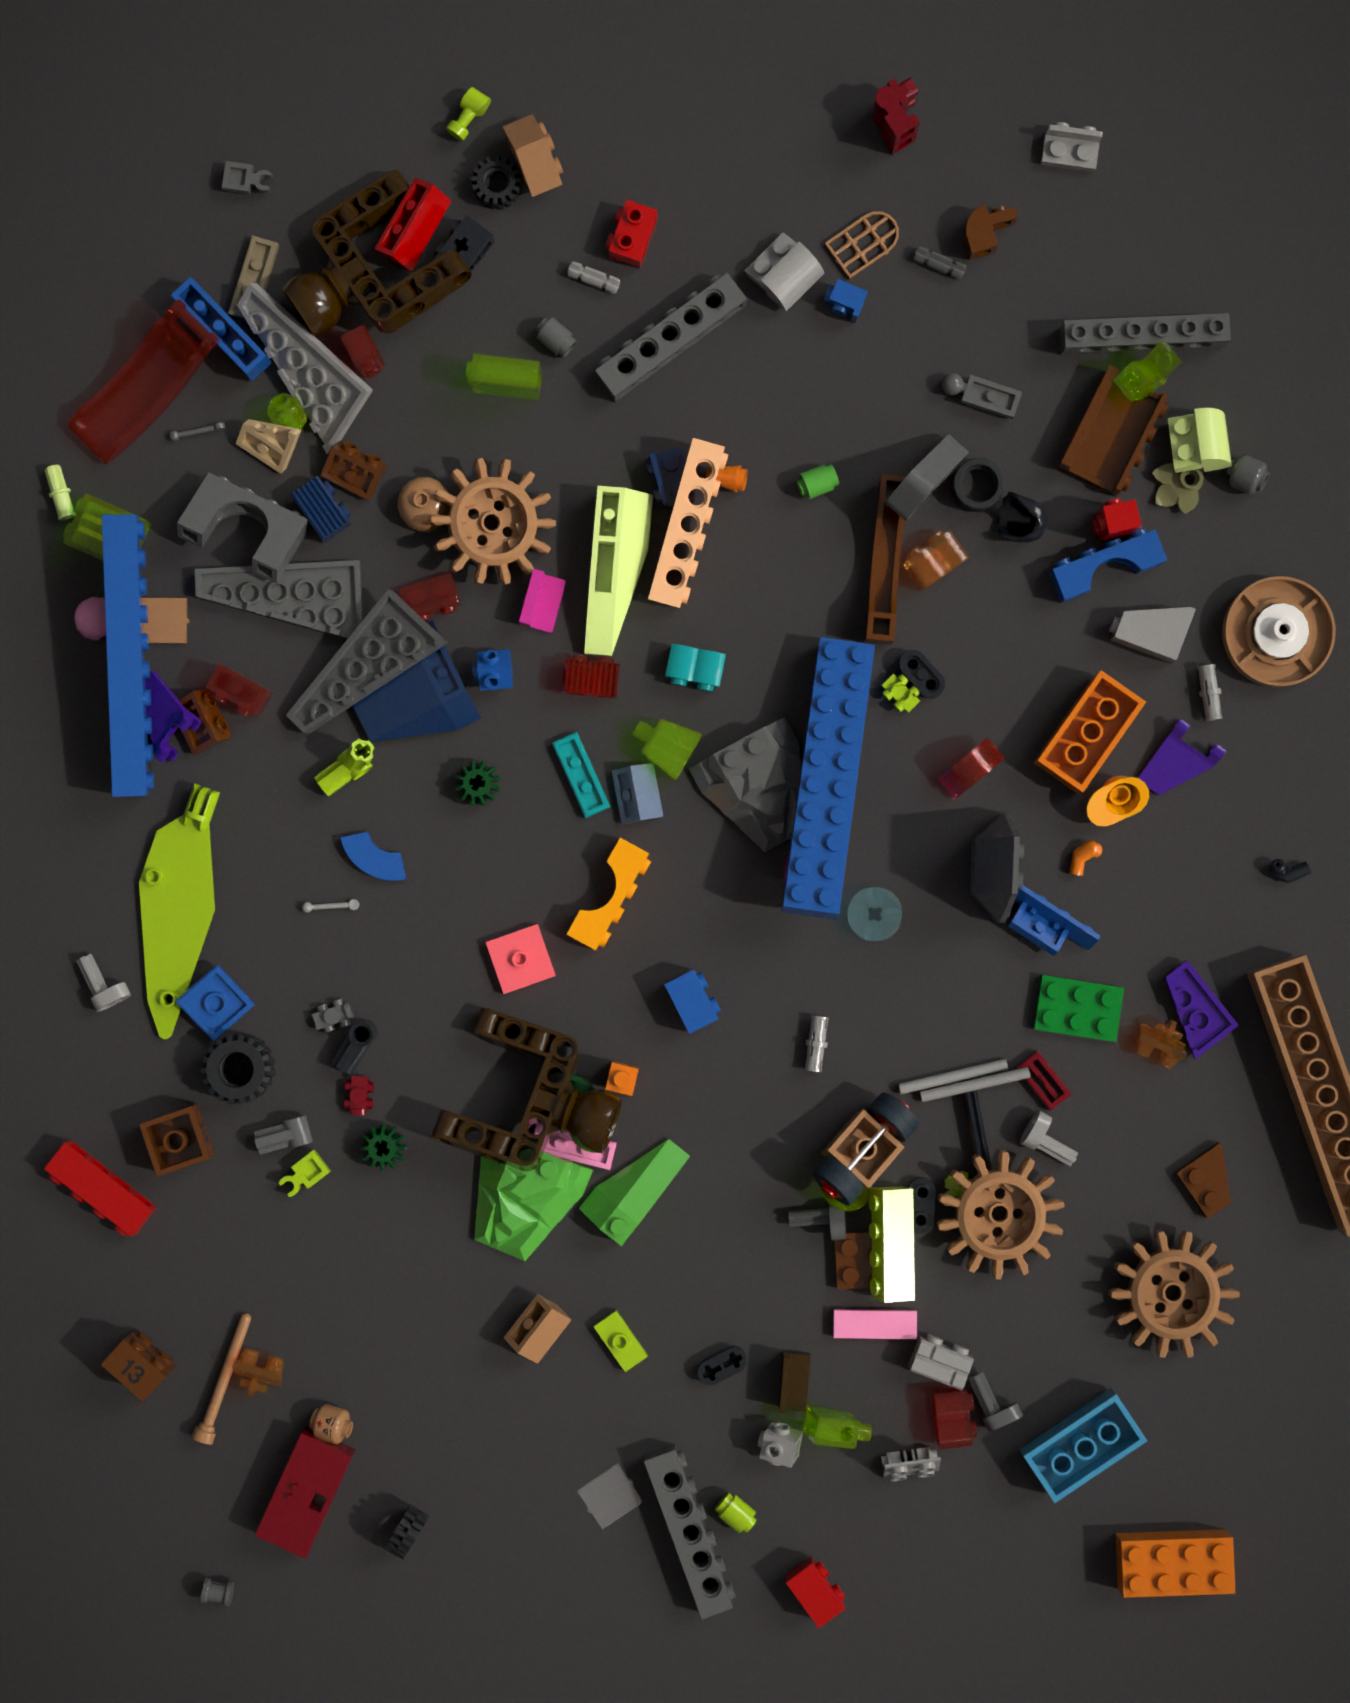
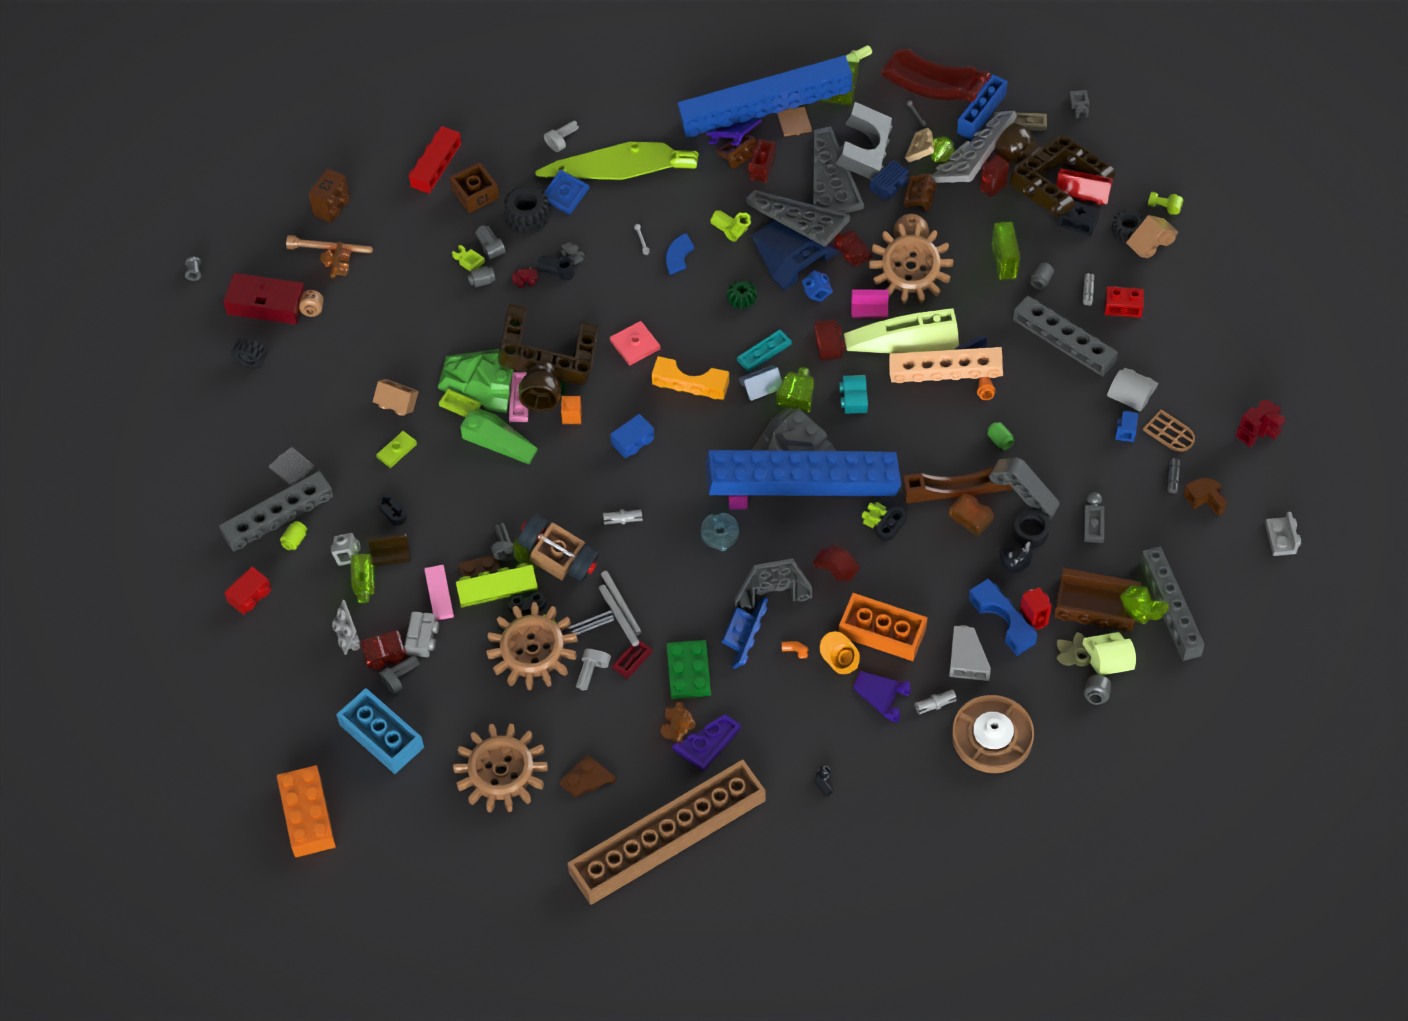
camera: 80 degrees right, 30 degrees down
(345, 1160) = (481, 276): none -> dark grey brick
(373, 1148) = (494, 294): dark green gear -> none
(567, 1236) = (458, 403): none -> lime plate

